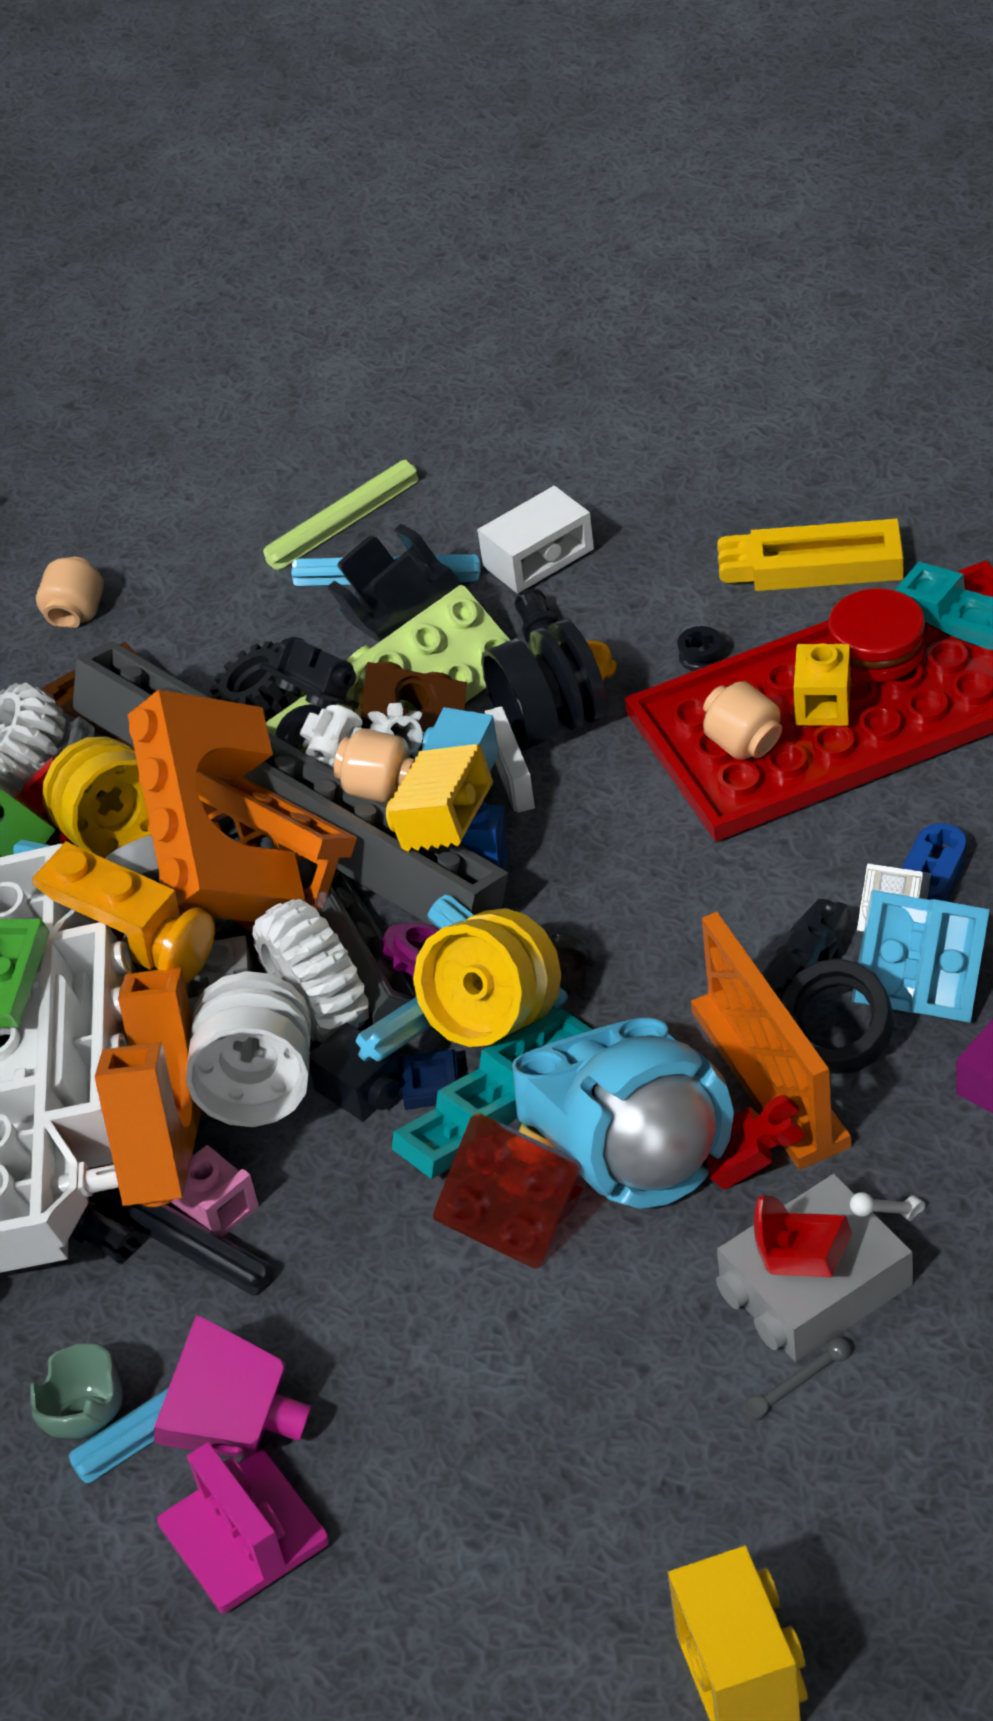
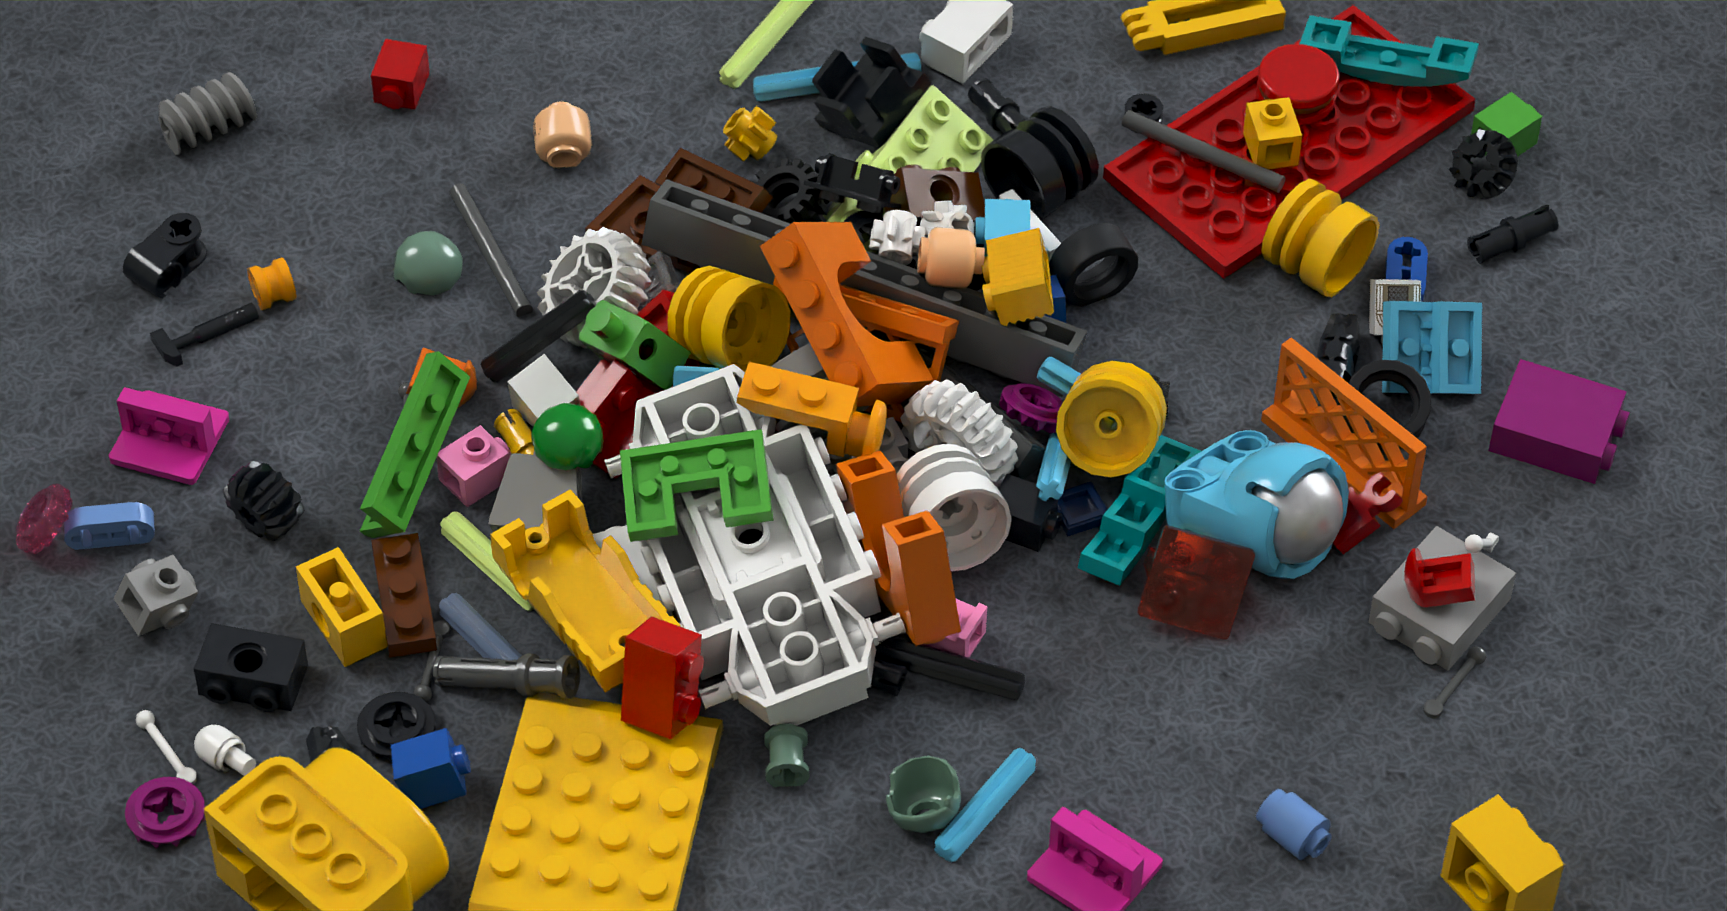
camera: 25 degrees left, 5 degrees up
(187, 660) = (714, 180): none -> reddish brown plate
(226, 1396) = (1044, 772): dark pink torso -> none
(258, 614) = (750, 133): none -> yellow gear
(507, 1526) = (1294, 824): none -> medium blue brick
(549, 775) = (1084, 249): none -> black tyre
(714, 677) = (1203, 151): none -> dark grey bar
(742, 720) = (1220, 174): light nougat head -> none
(831, 807) = (1320, 237): none -> yellow wheel

